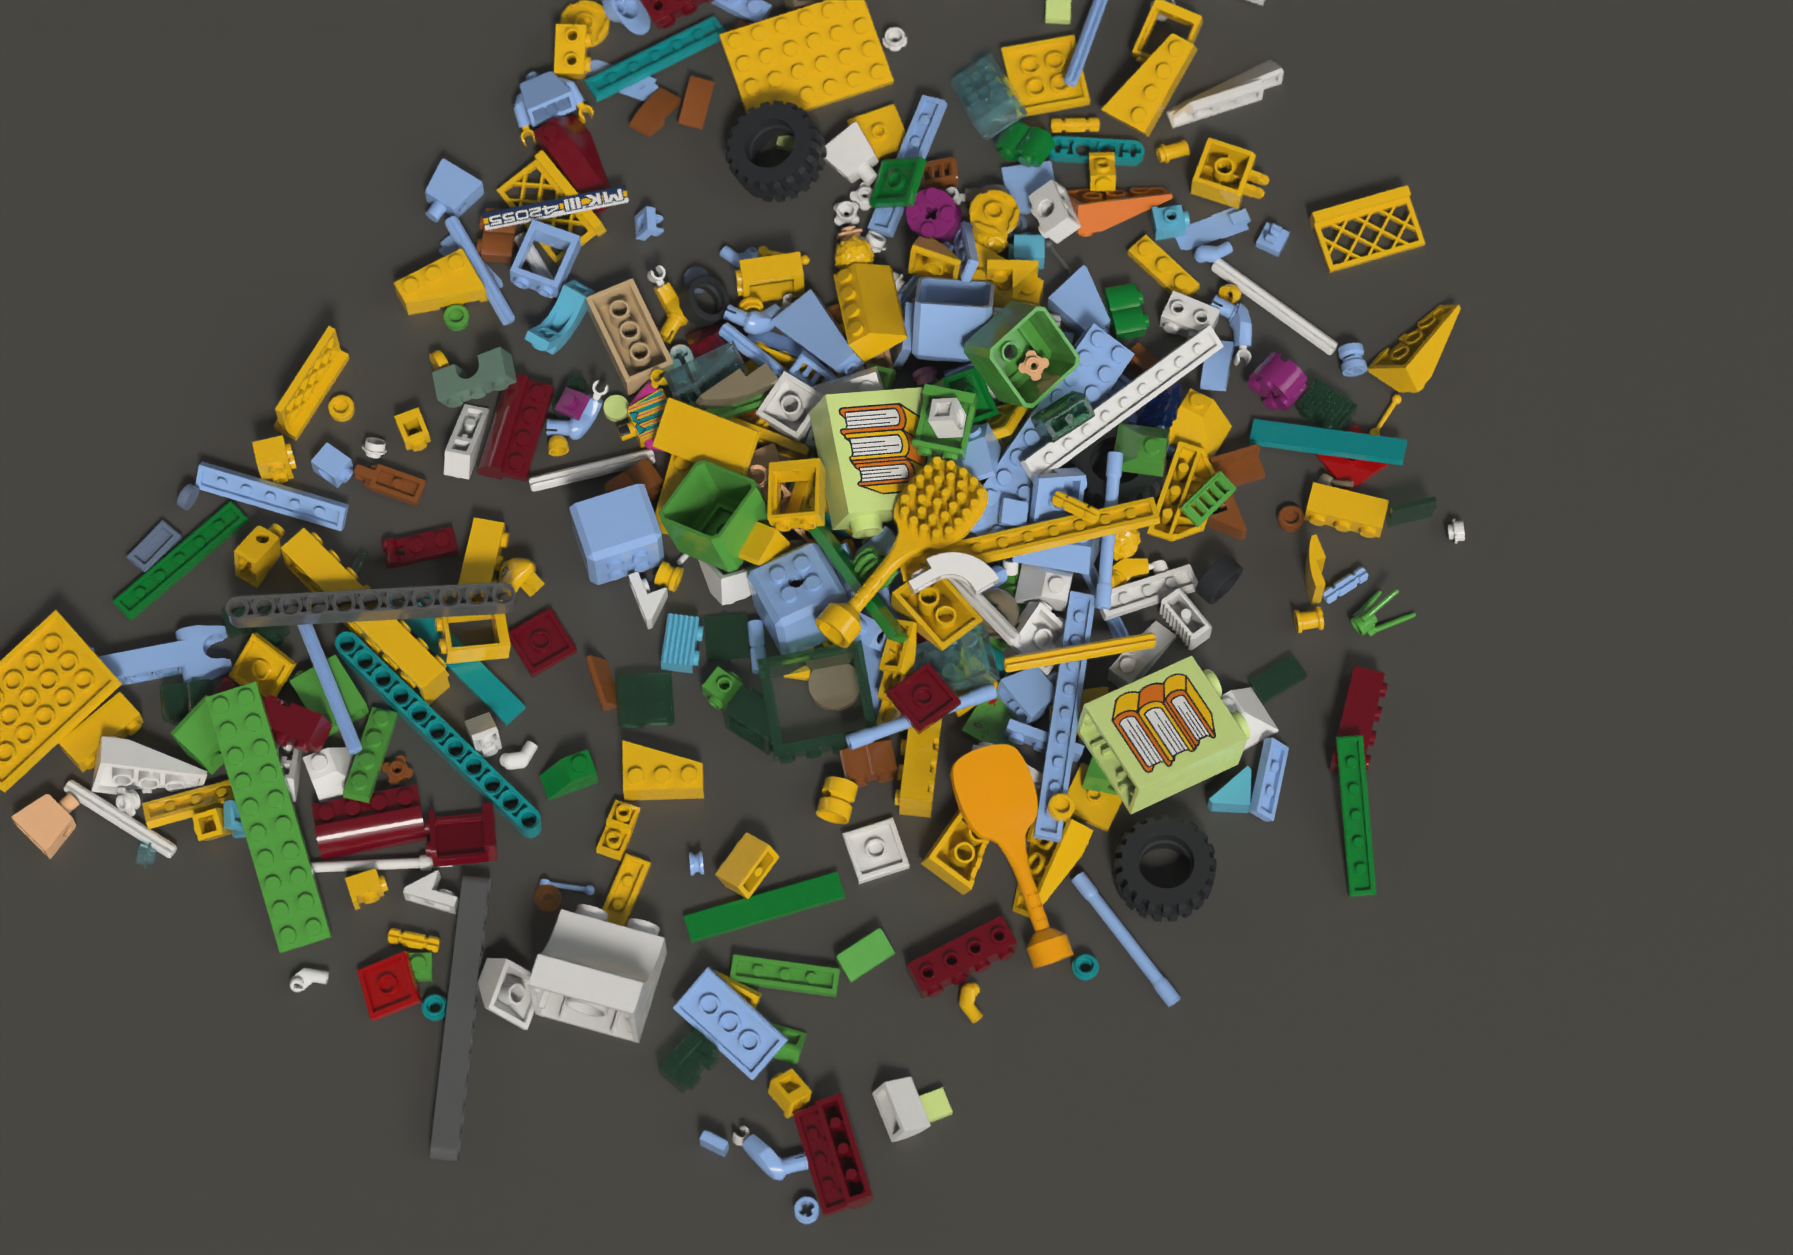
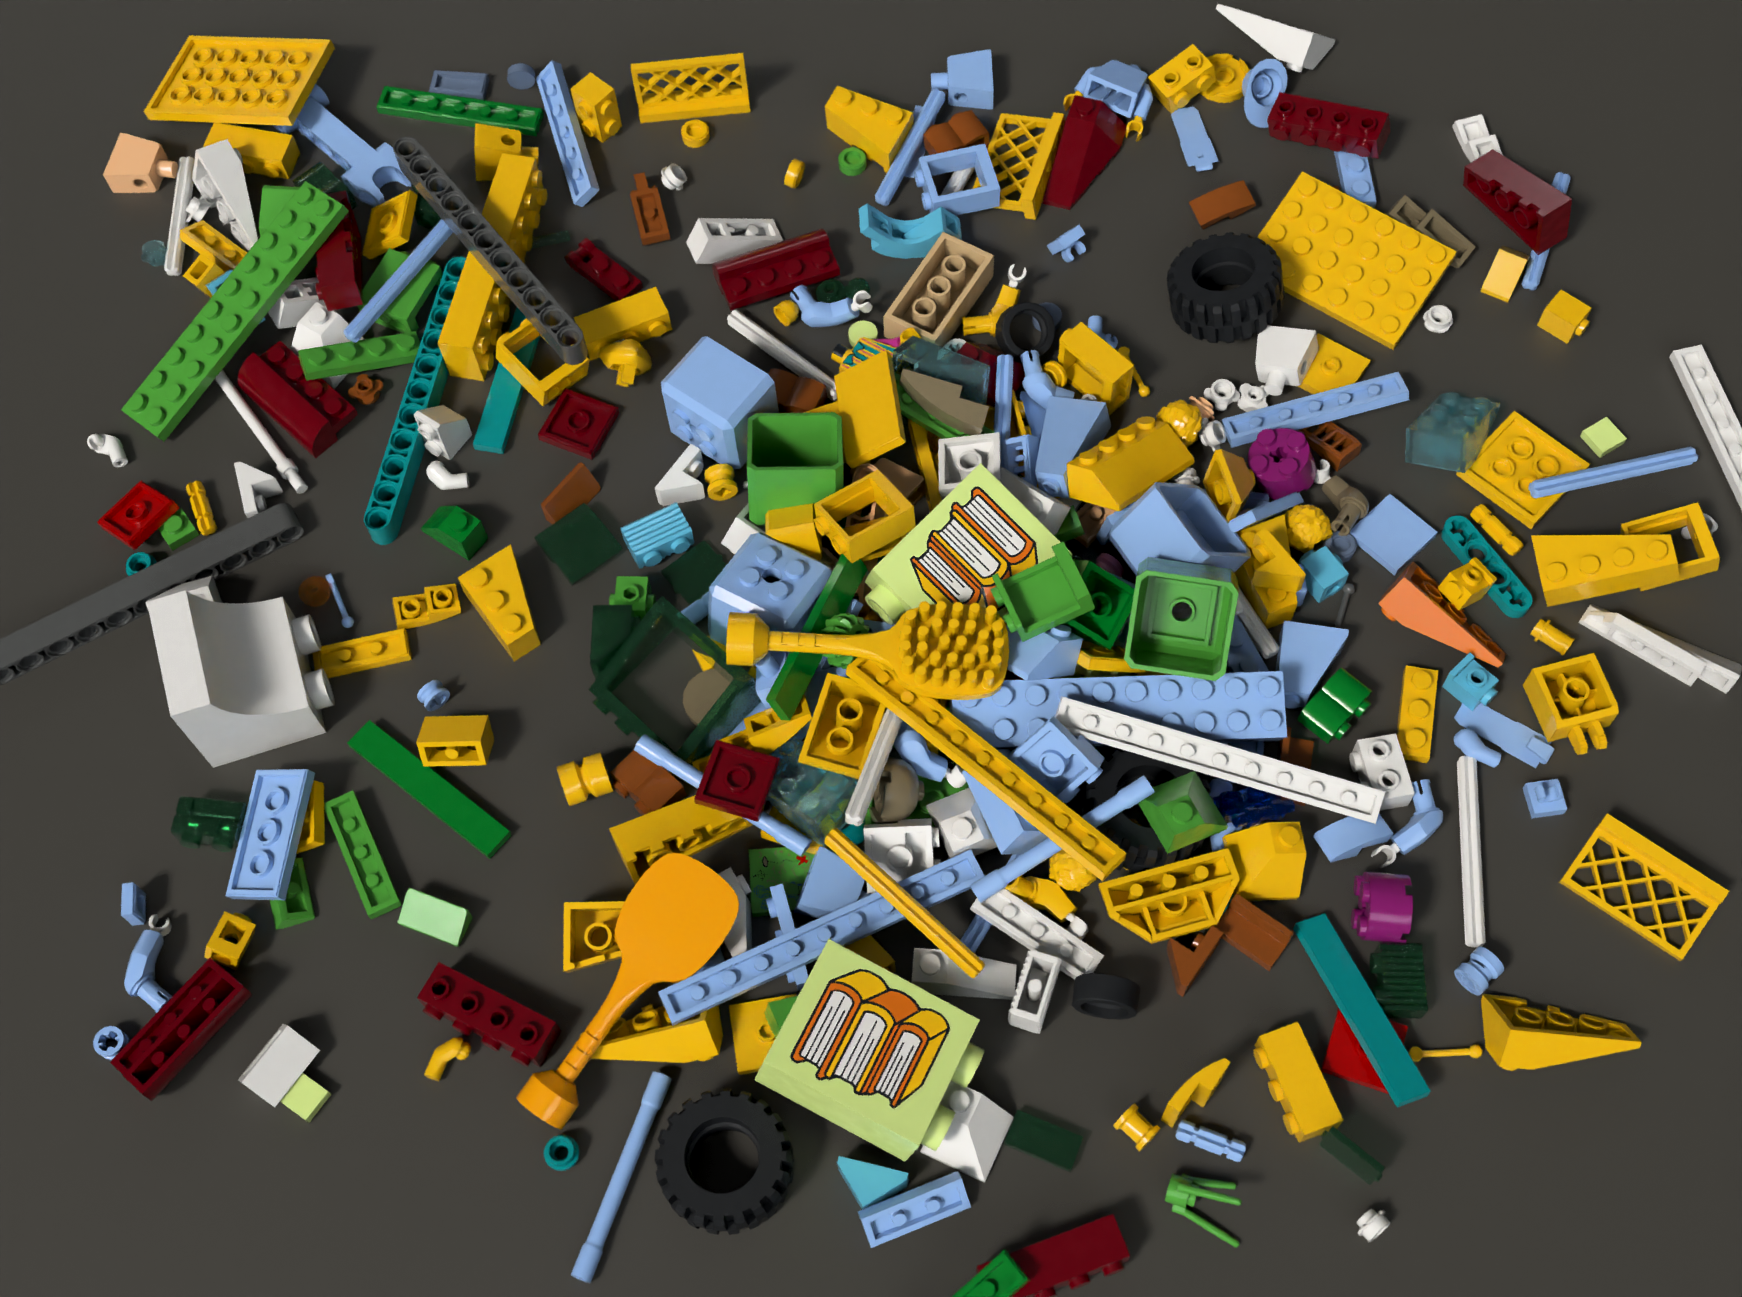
camera: 60 degrees right, 5 degrees down
(332, 465) = (630, 155): light blue brick -> none
(366, 887) = (225, 434): yellow brick -> none
(409, 423) = (711, 192): yellow brick -> none
(462, 837) = (326, 478): dark red panel -> none
(494, 373) = (782, 199): sand green arch -> none
(555, 207) = (1016, 158): sticker -> none
(572, 403) = (830, 290): magenta plate -> none
(653, 112) = (1176, 177): dark orange slope -> none
(654, 59) = (1234, 146): teal tile -> none
(875, 850) = (560, 854): white tile -> none
(897, 182) = (1285, 407): green tile -> none
(947, 418) = (1043, 586): white brick -> none
(954, 566) = (895, 724): white arch -> none
(994, 213) = (1327, 509): yellow tile -> none
(1013, 513) = (1002, 729): light blue tile -> none
(1024, 144) = (1430, 495): green brick -> none
(1041, 364) = (1186, 652): light nougat plate -> none
(1054, 211) = (1380, 563): white brick -> none
(1061, 807) = (707, 998): yellow tile -> none
(1062, 416) = (1145, 703): clear green brick -> none
(1076, 507) = (1051, 782): yellow axle -> none
(1219, 486) = (1213, 926): bright green slope -> none
(1224, 290) = (1445, 795): yellow hinge -> none
(1290, 518) = (1242, 1029): dark orange tile -> none
(1328, 480) = (1315, 1040): dark tan hand -> none

